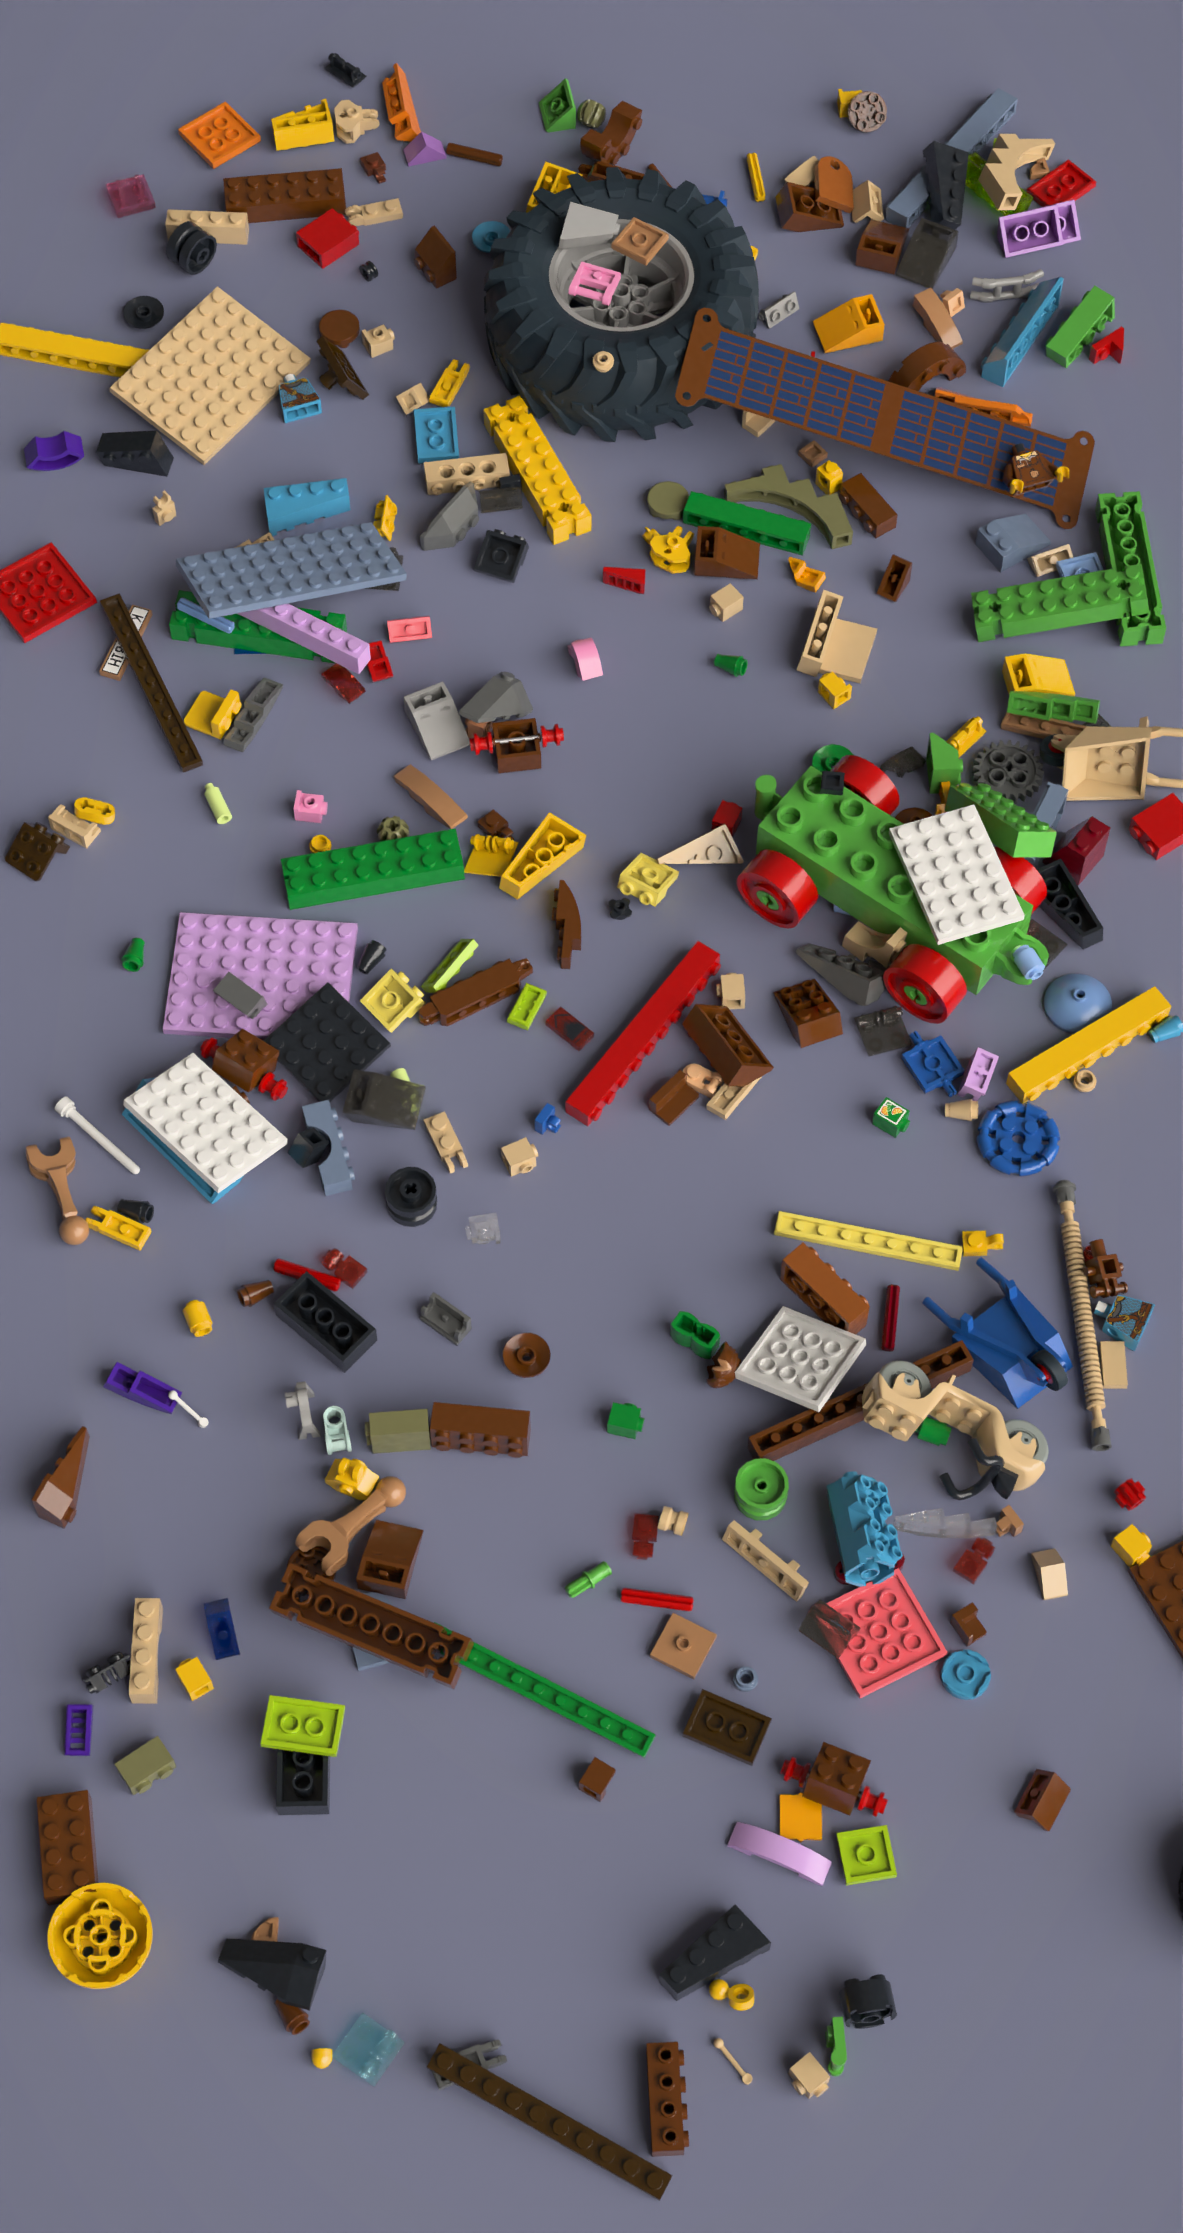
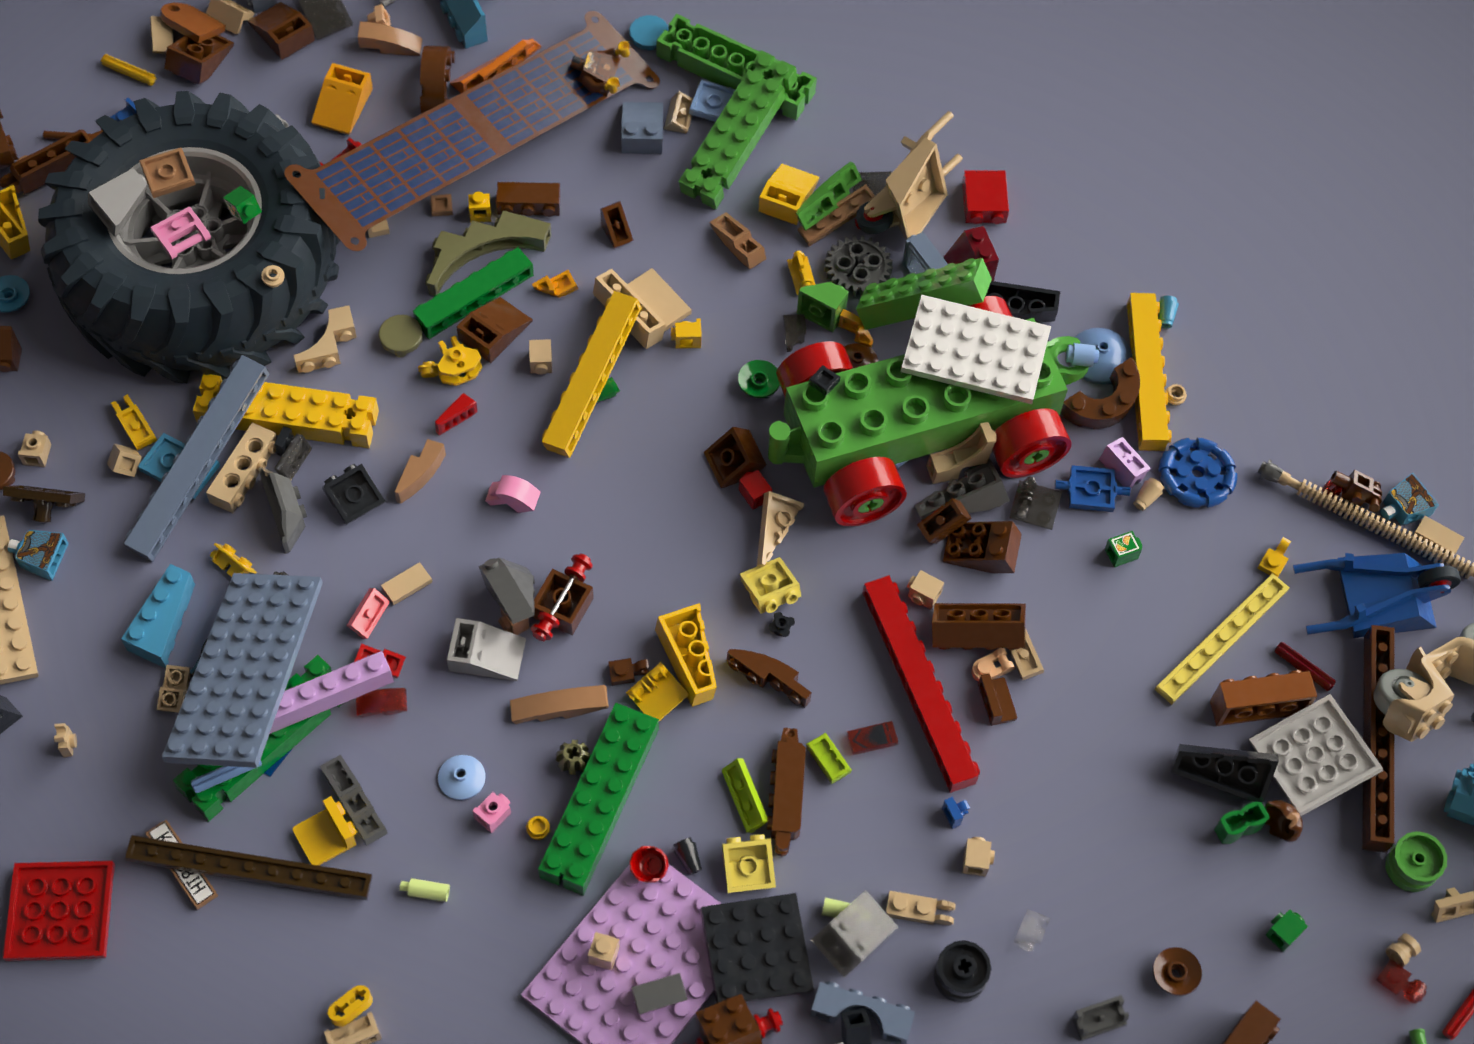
camera: 60 degrees left, 0 degrees up
(246, 939) = (603, 951): none -> tan brick
(326, 780) = (461, 787): none -> light blue dish
(337, 927) = (649, 864): none -> red hair
(445, 436) = (196, 458): none -> sand blue brick
(455, 639) = (406, 583): none -> tan tile
(556, 586) = (420, 470): none -> medium nougat slope
(612, 462) = (325, 351): none -> tan arch
(649, 302) = (242, 204): none -> green brick
(732, 641) = (591, 374): none -> yellow brick
(734, 1298) = (1229, 770): none -> black wedge
(740, 786) = (734, 456): none -> reddish brown slope
(802, 965) = (944, 521): none -> reddish brown brick
(957, 673) = (738, 240): none -> medium nougat slope
(1026, 1036) = (1108, 411): none -> reddish brown brick
(1113, 483) = (646, 31): none -> dark azure tile

